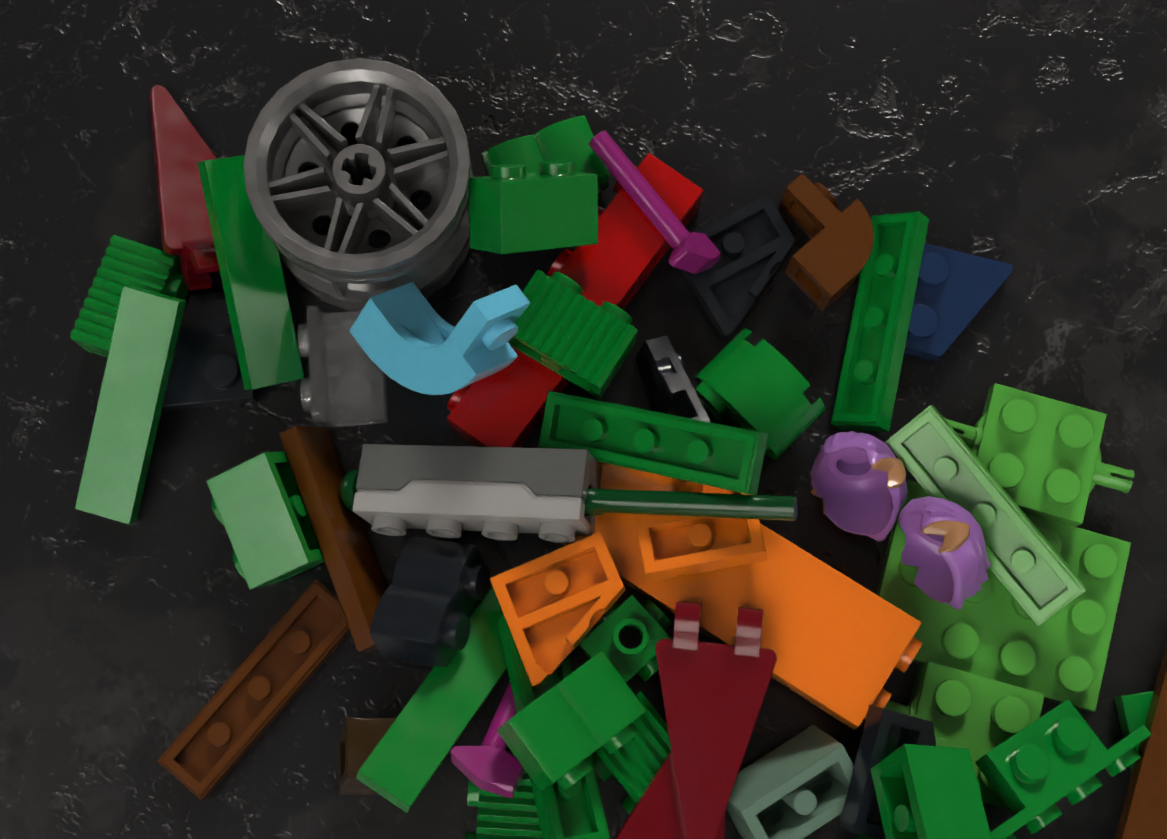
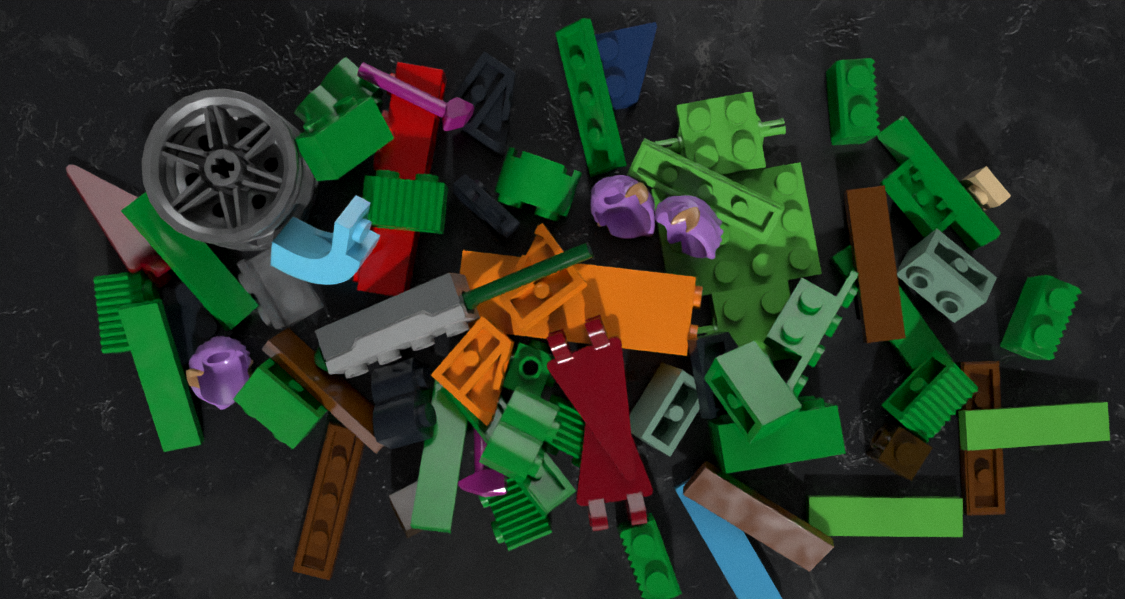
camera: 25 degrees left, 10 degrees up
(207, 435) = (219, 370): none -> medium lavender hair
(655, 442) = (487, 247): green tile -> none
(837, 243) = (542, 60): reddish brown brick -> none

